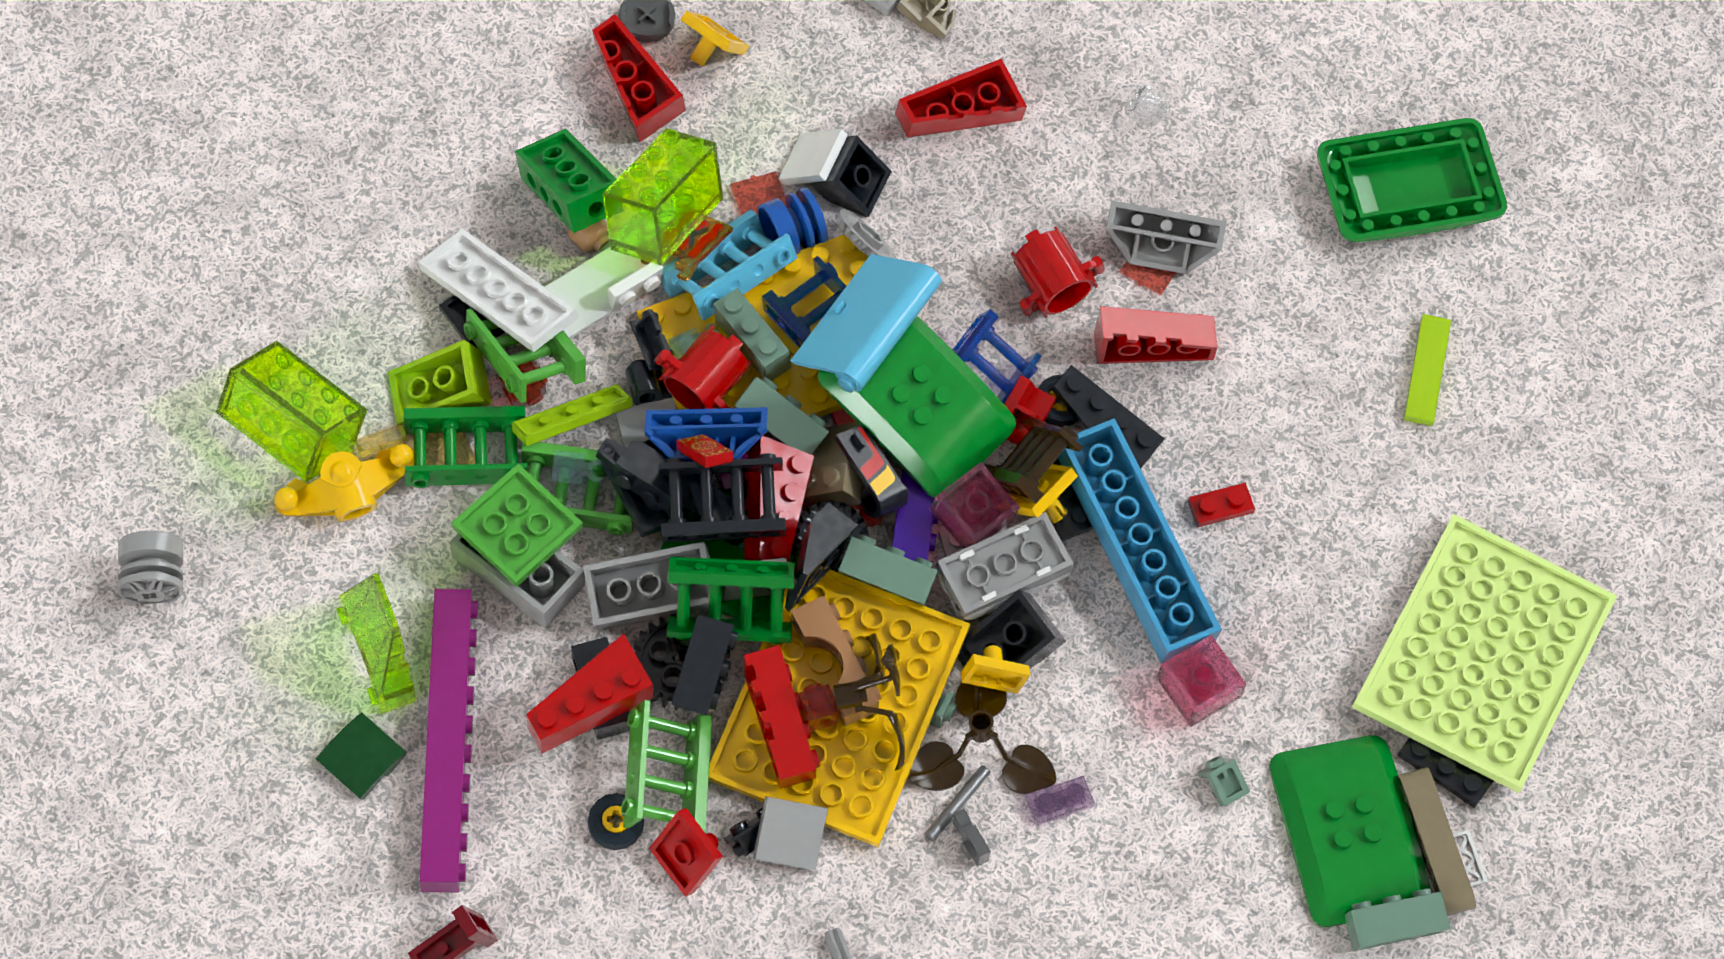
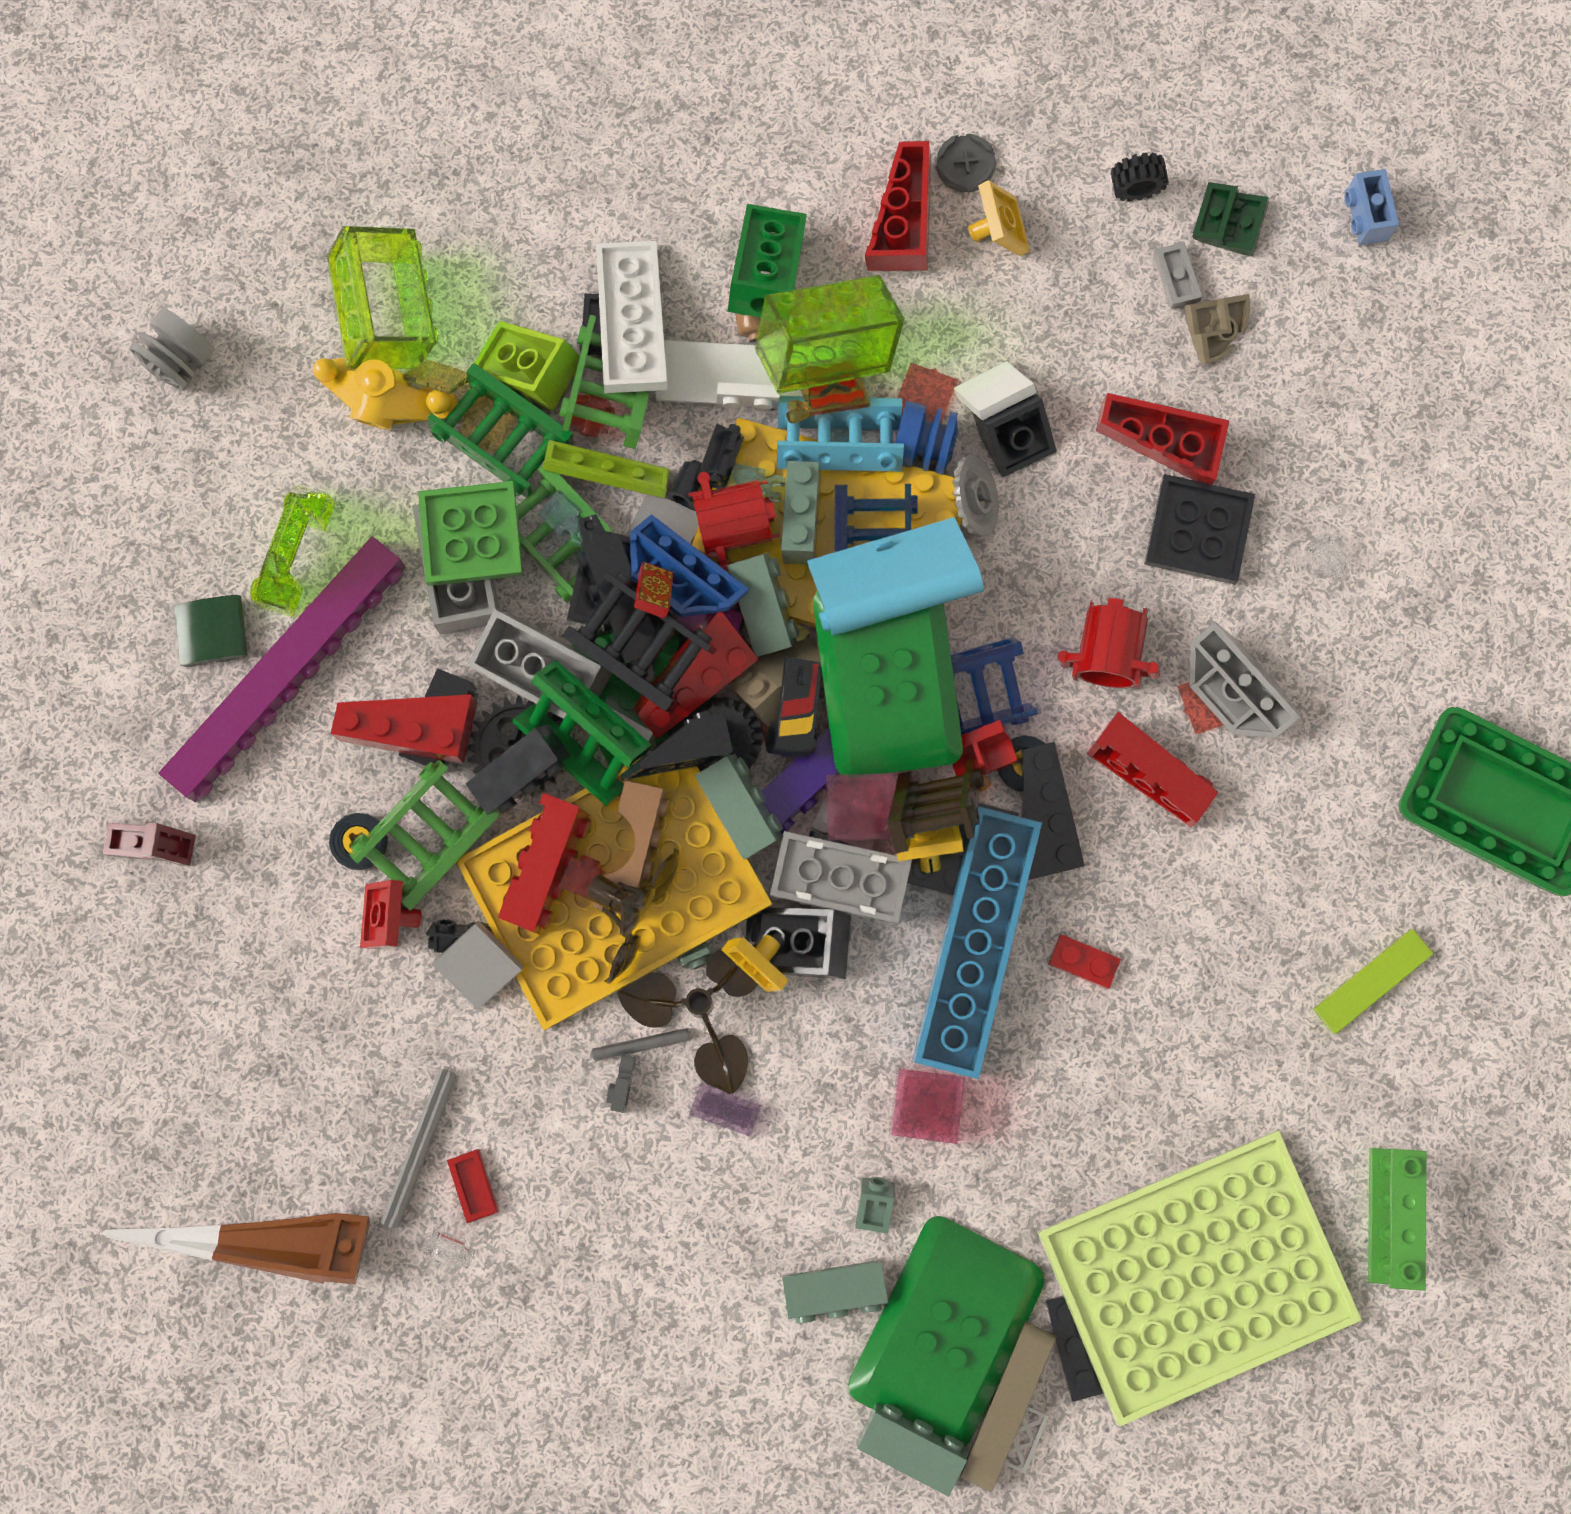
camera: 45 degrees right, 15 degrees up
(1041, 151) = (1199, 529): none -> black plate
(1248, 859) = (835, 1291): none -> sand green brick
(1580, 505) = (1397, 1218): none -> bright green fence

